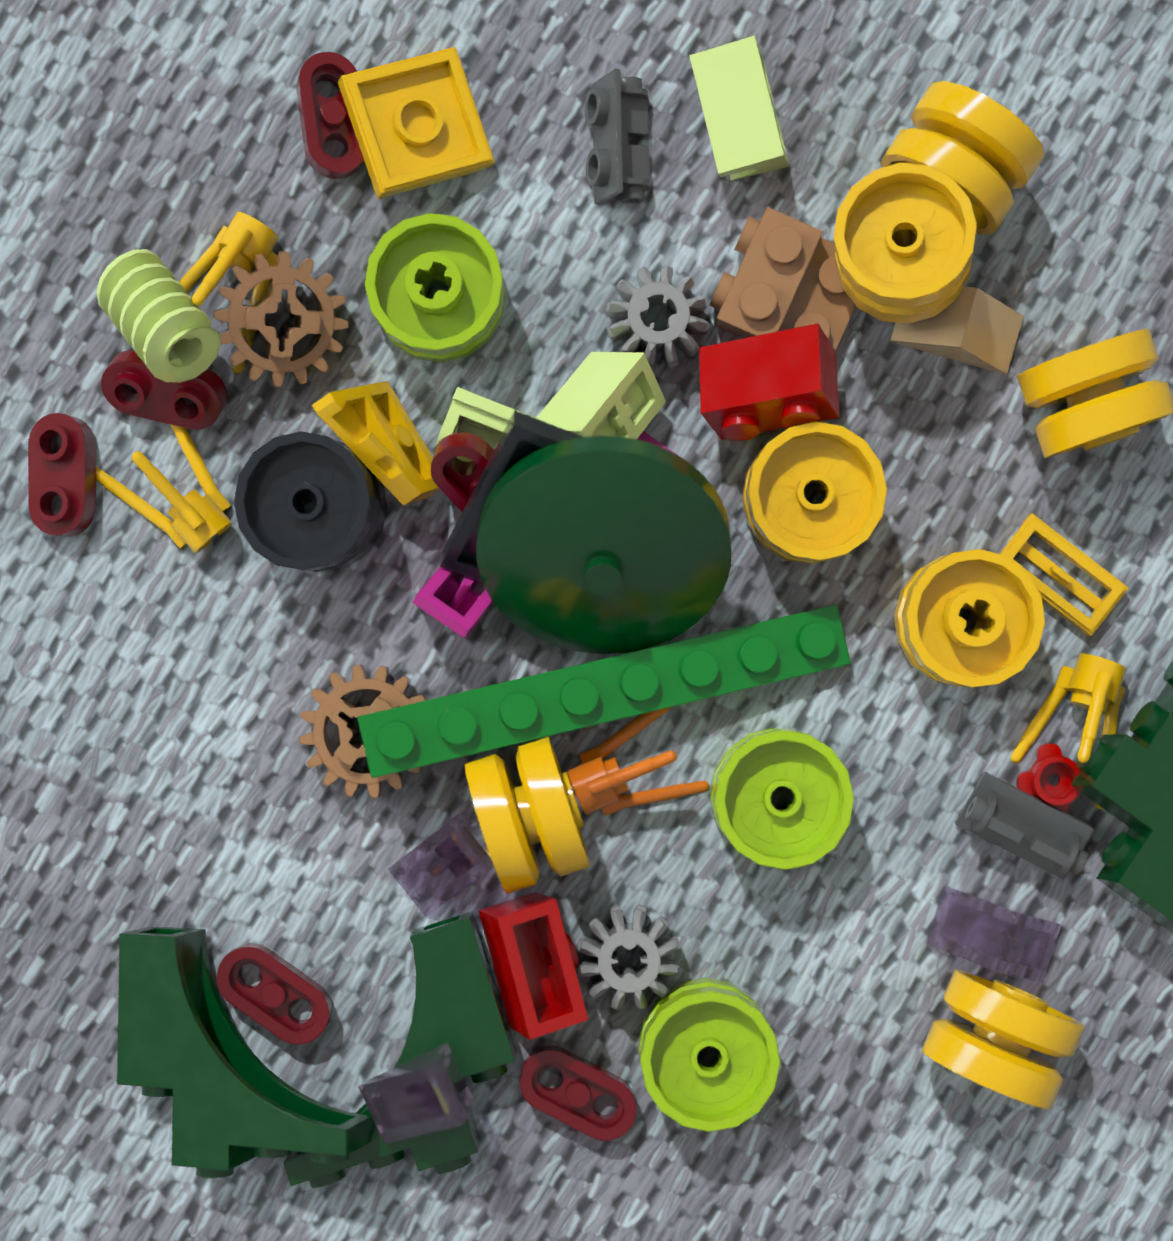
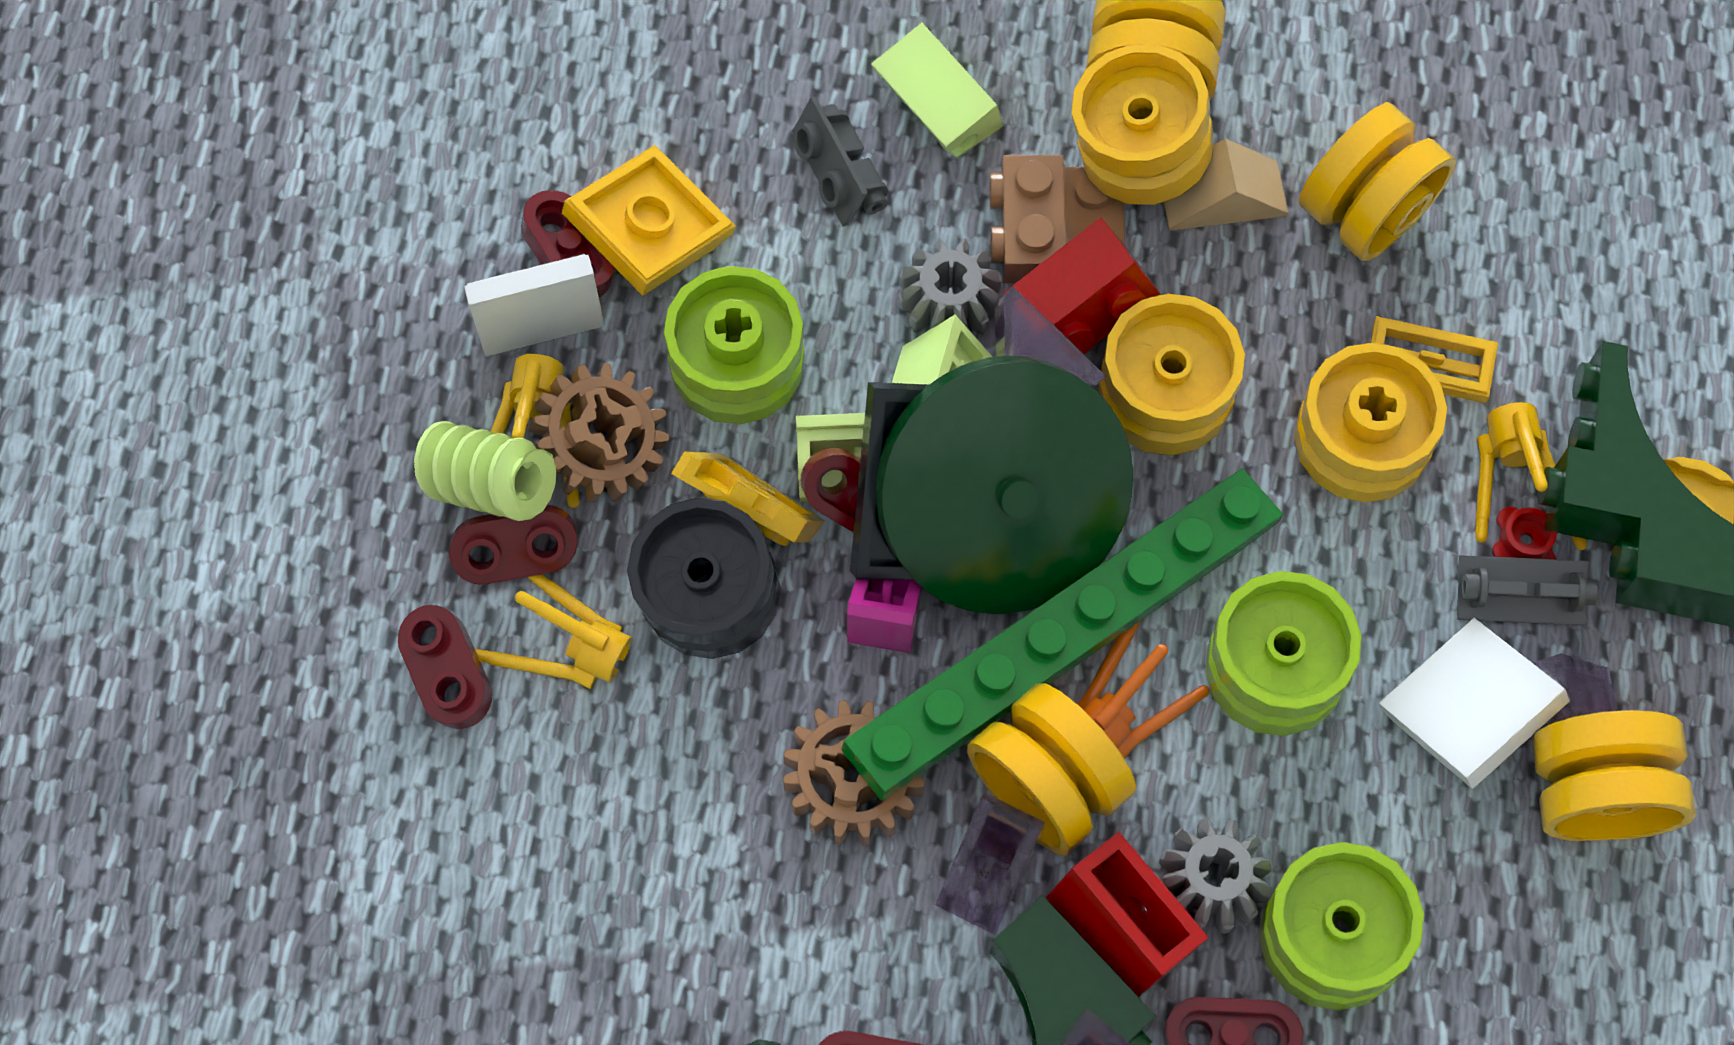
camera: 20 degrees left, 20 degrees down
(267, 172) = (535, 304): none -> white tile
(689, 432) = (1027, 333): none -> clear purple slope
(923, 913) = (1474, 702): none -> white tile

